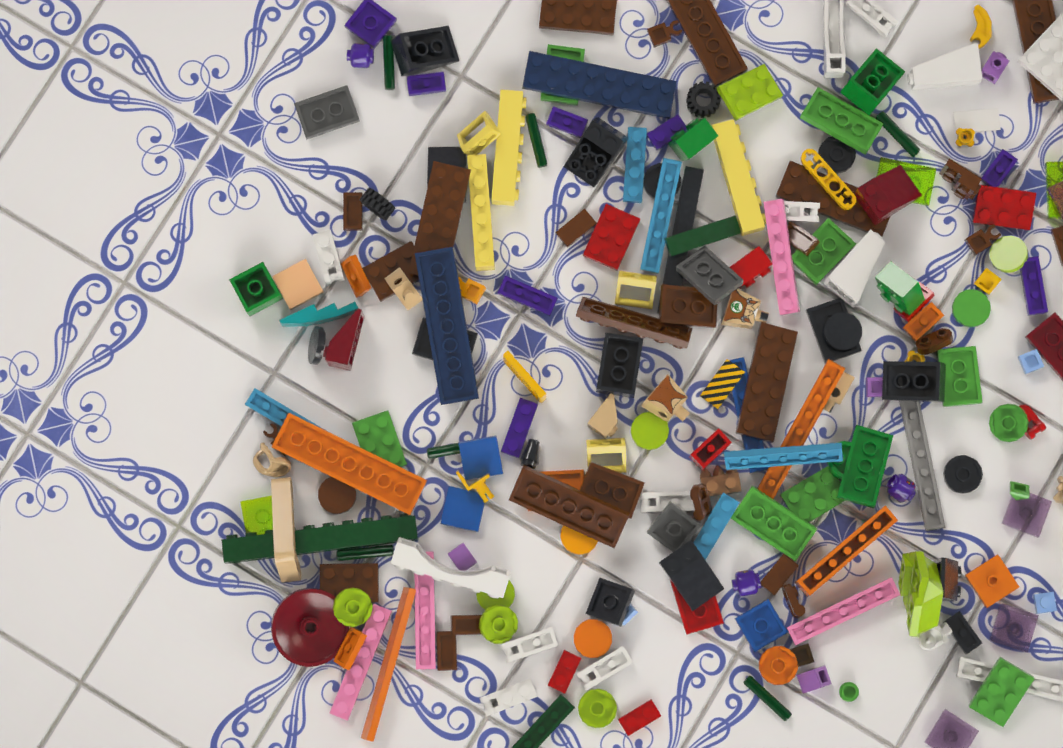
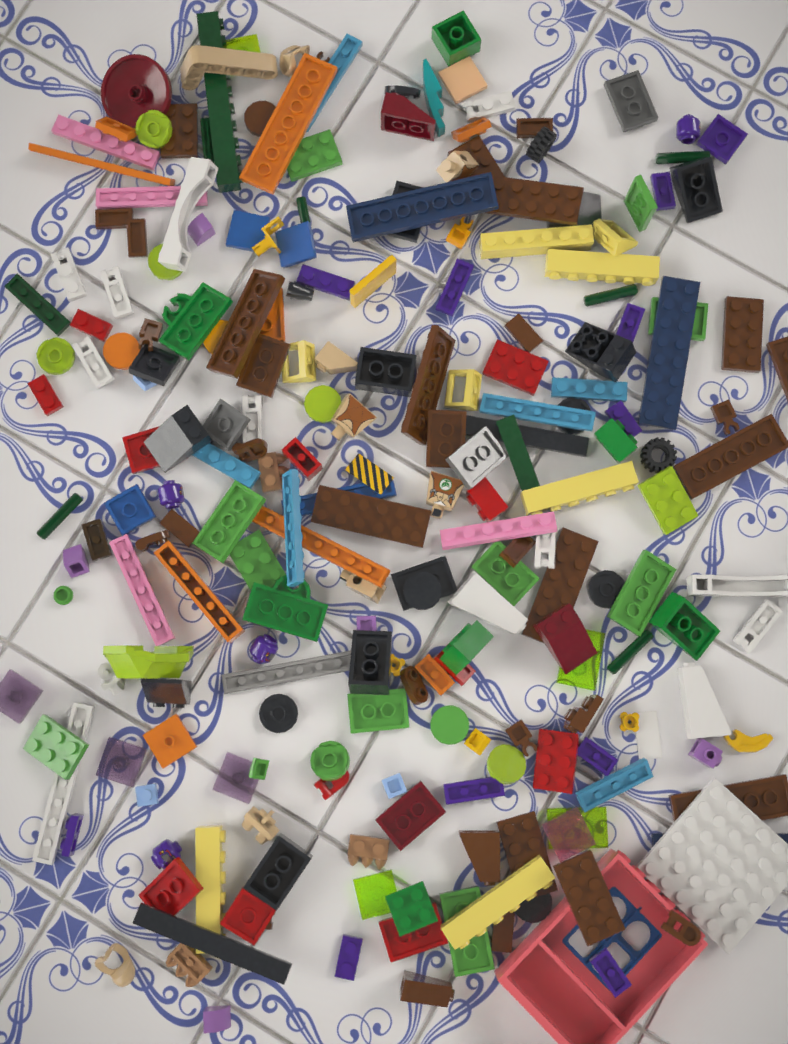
camera: 85 degrees right, 0 degrees up
(447, 106) = (640, 203): none -> bright green tile
(498, 624) = (136, 262): lime tile -> none
(561, 562) = (193, 319): none -> green plate
(574, 607) = (150, 332): none -> reddish brown plate
(778, 665) = (88, 524): orange tile -> none
(830, 177) = (579, 577): yellow beam -> none
(963, 633) = (117, 709): black plate -> none
(1025, 153) = (614, 784): none -> dark azure plate

